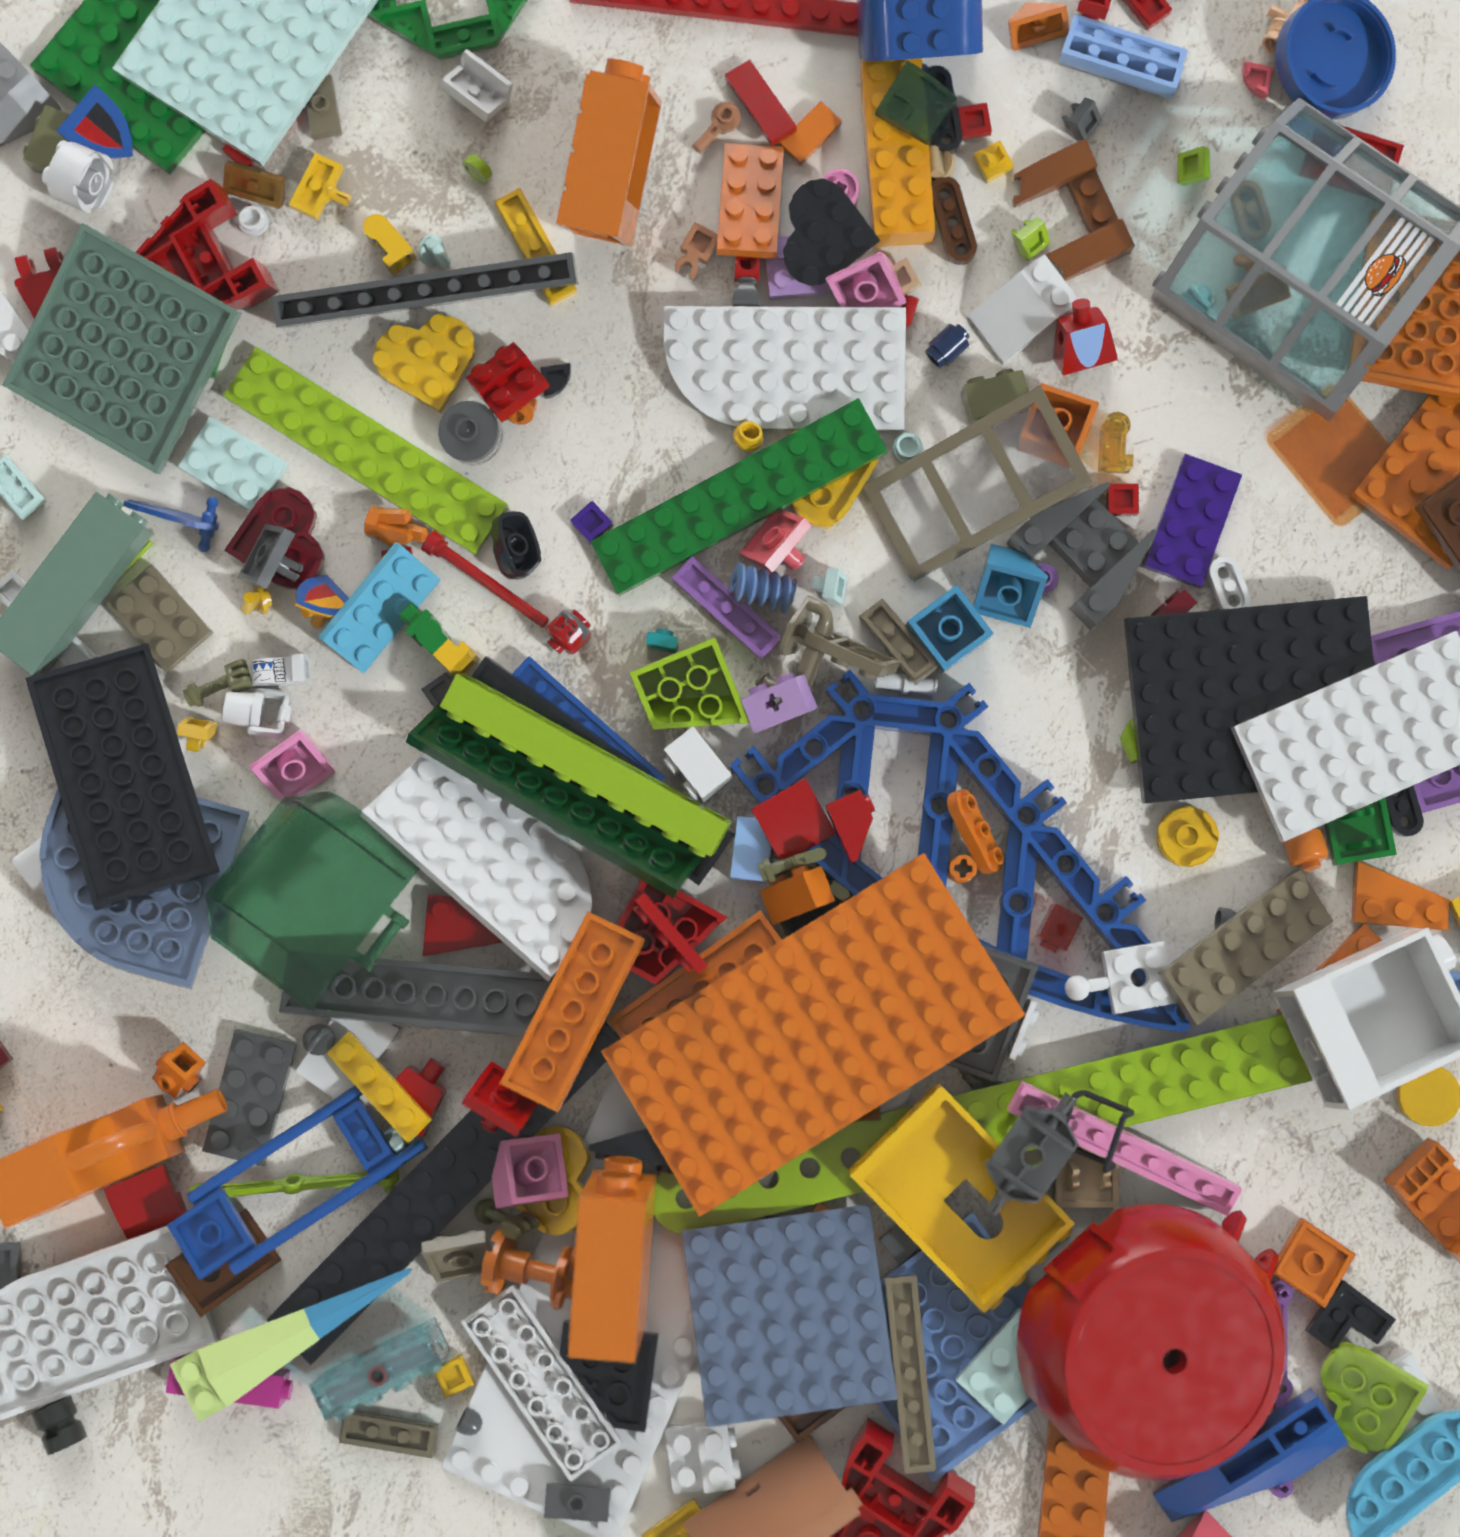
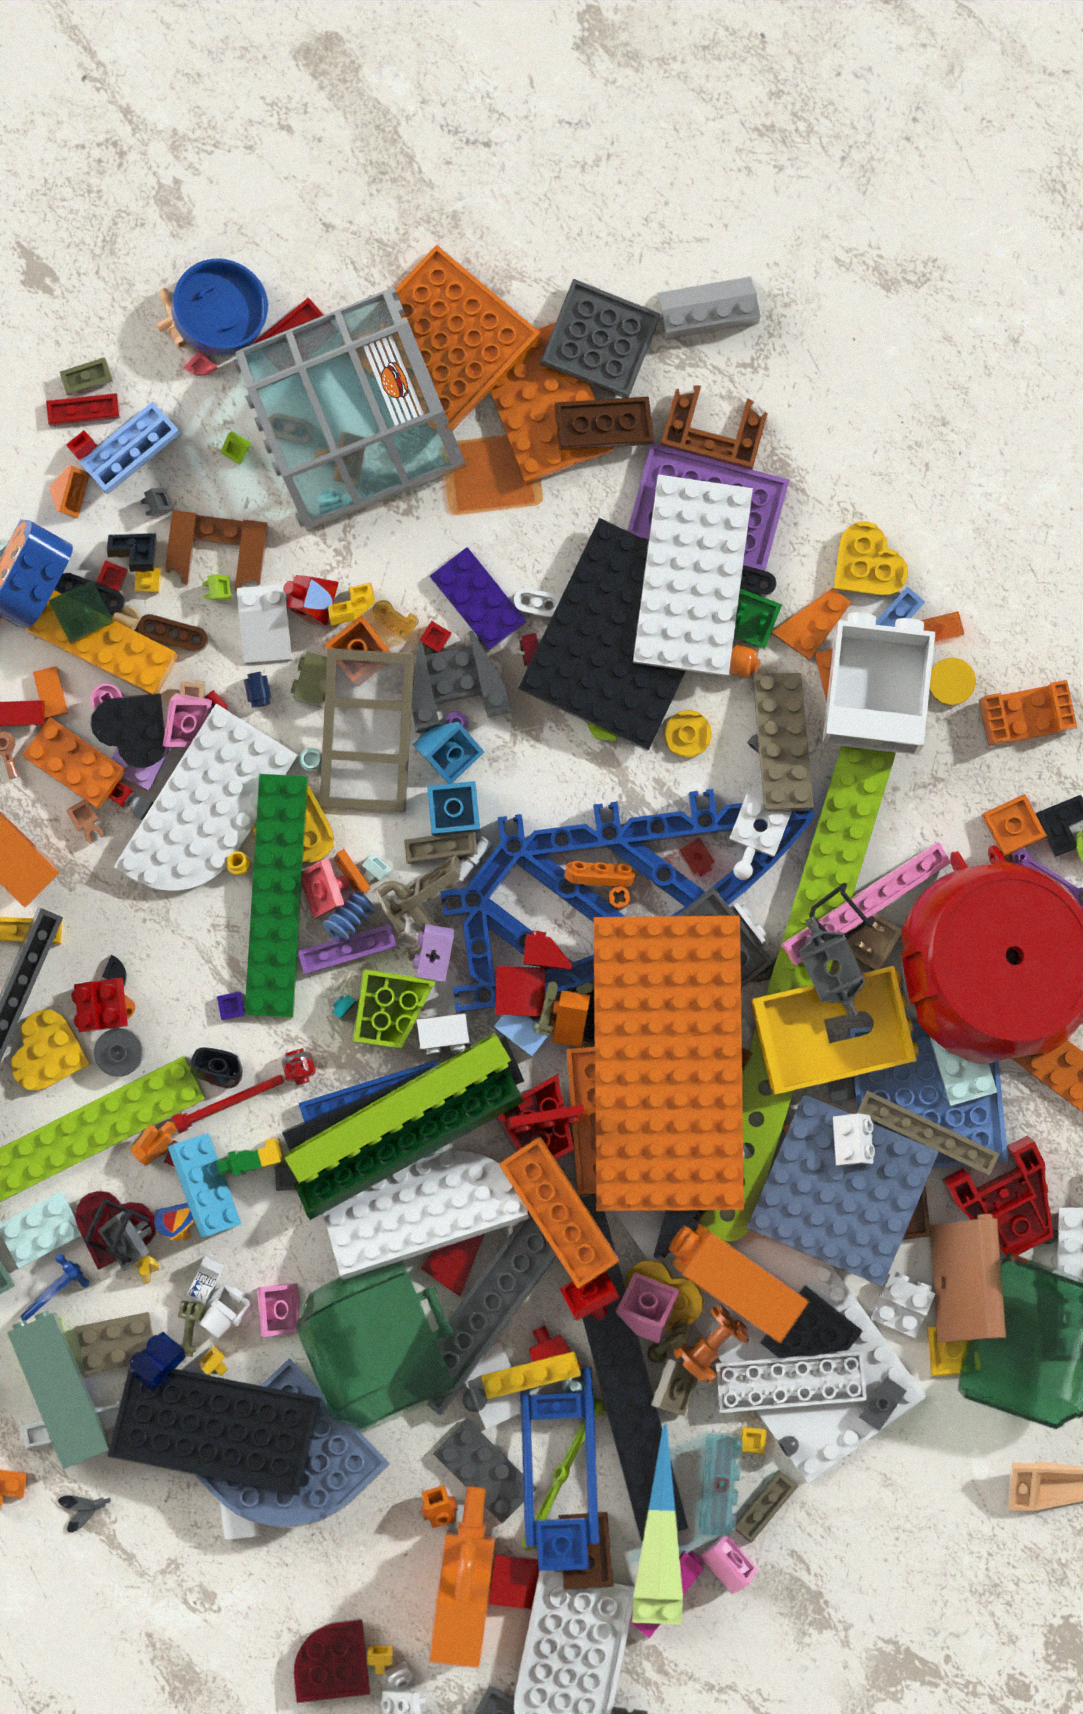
camera: 60 degrees left, 0 degrees up
(159, 669) = (156, 1360): none -> clear blue brick
(299, 1435) = (729, 1564): none -> bright pink slope
(301, 550) = (129, 1213): none -> black piece
(812, 562) = (351, 872): none -> orange tile
(852, 1294) = (853, 1139): none -> white bracket
(1019, 128) = (139, 547): none -> black plate
(1112, 394) = (360, 600): none -> yellow tile

